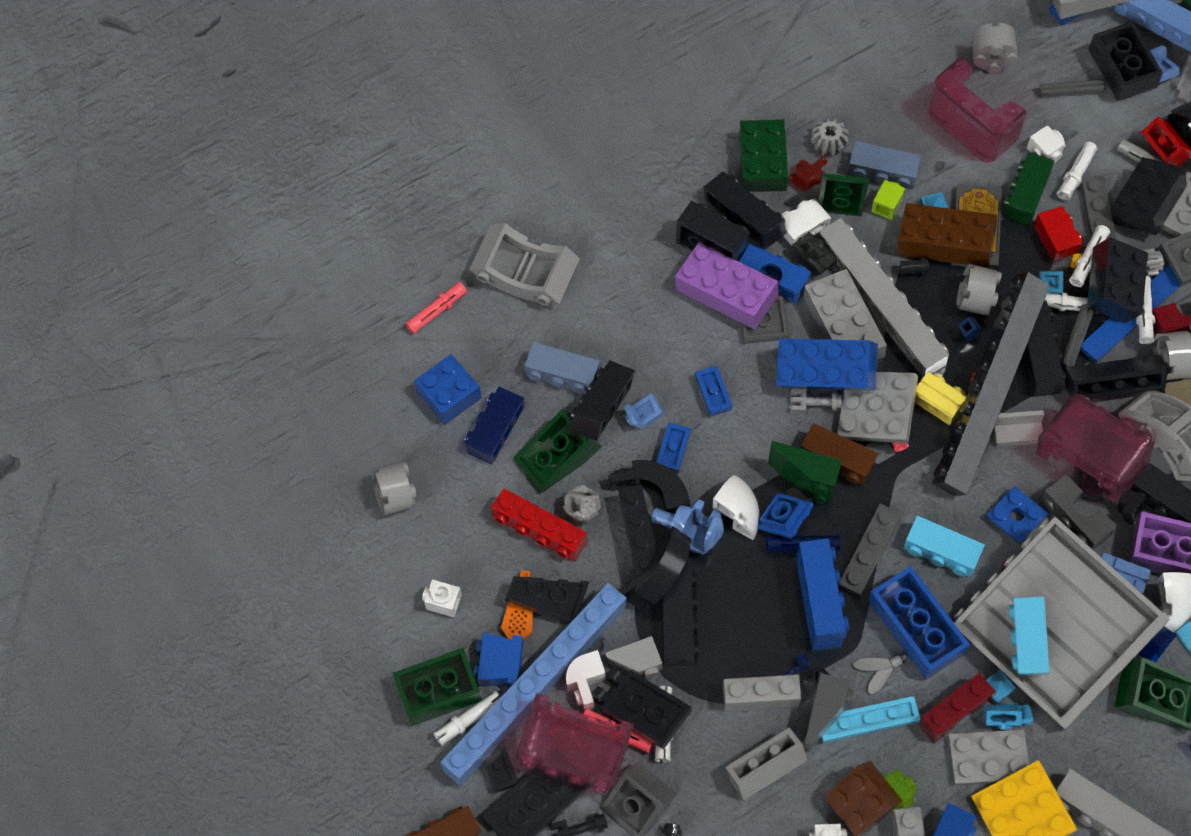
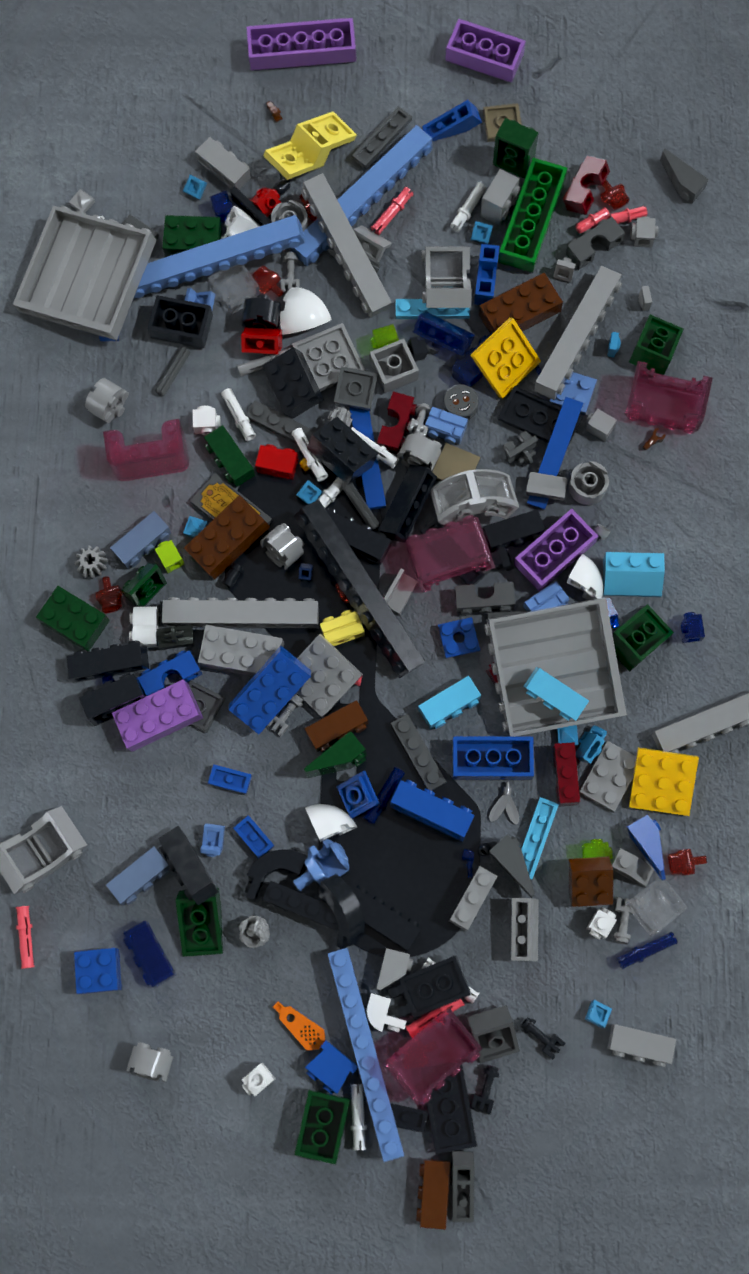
camera: 55 degrees left, 10 degrees up
(539, 525) = (248, 972): red brick -> none
(552, 599) = (309, 1000): black wing -> none

